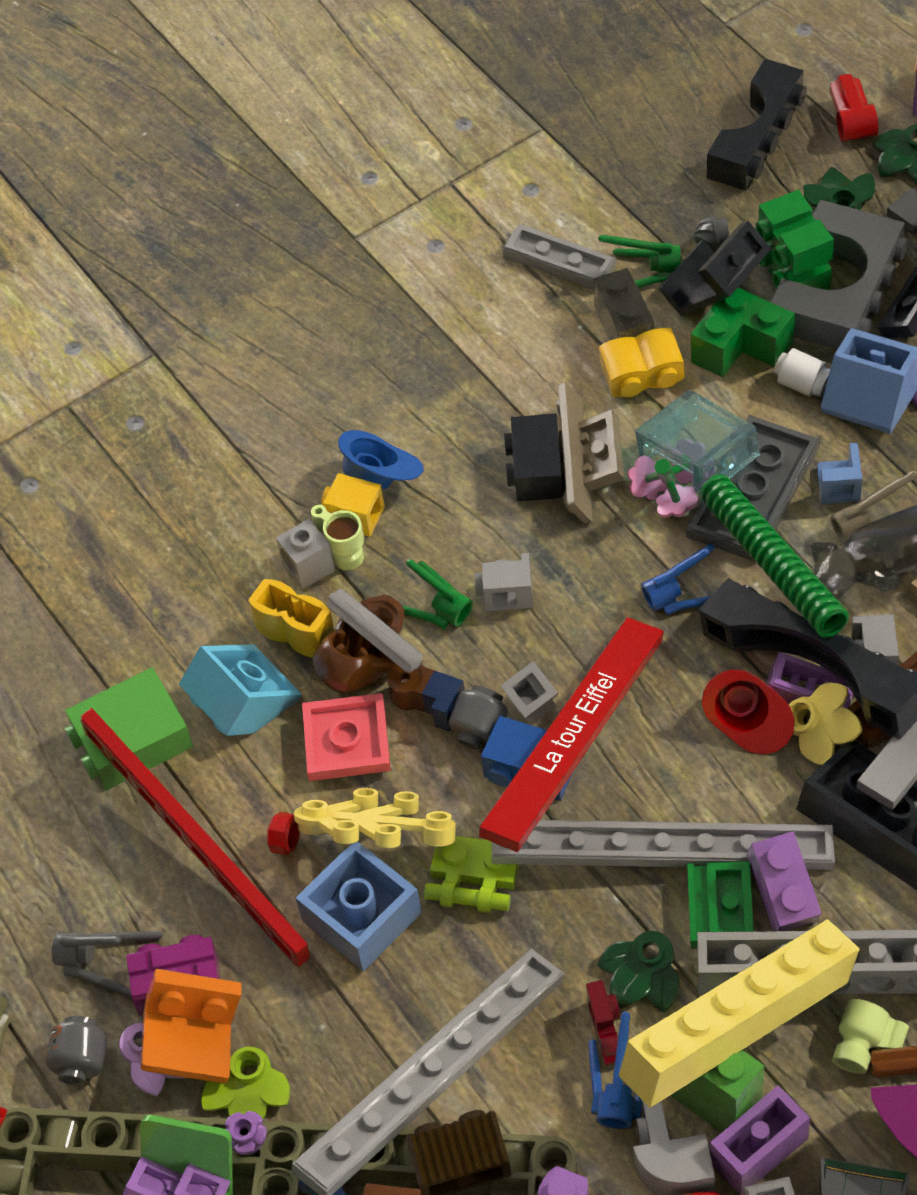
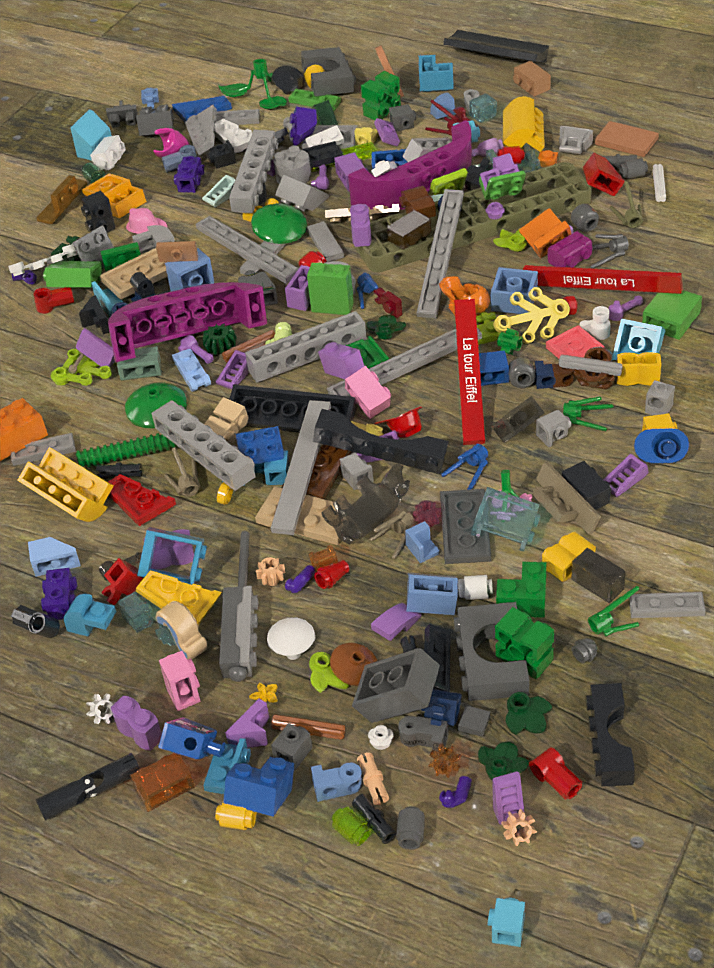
camera: 150 degrees right, 10 degrees down
(210, 788) = (616, 310): none -> medium lavender piece
(272, 760) = (599, 326): none -> white piece
(343, 533) = (648, 403): yellowish green piece -> none
(440, 470) = (629, 462): none -> medium lavender slope
(449, 794) = (509, 341): none -> green gear
(457, 932) = (454, 290): none -> orange head
(531, 693) = (503, 383): light grey brick -> none
(557, 611) = (517, 419): none -> clear smoke brick
(712, 276) = (555, 608): black panel -> none
(737, 1013) = (322, 275): light yellow brick -> none
(774, 556) = (426, 466): green piece -> none
(774, 783) = (368, 392): none -> bright pink brick
(805, 516) = (427, 512): none -> clear pink gear

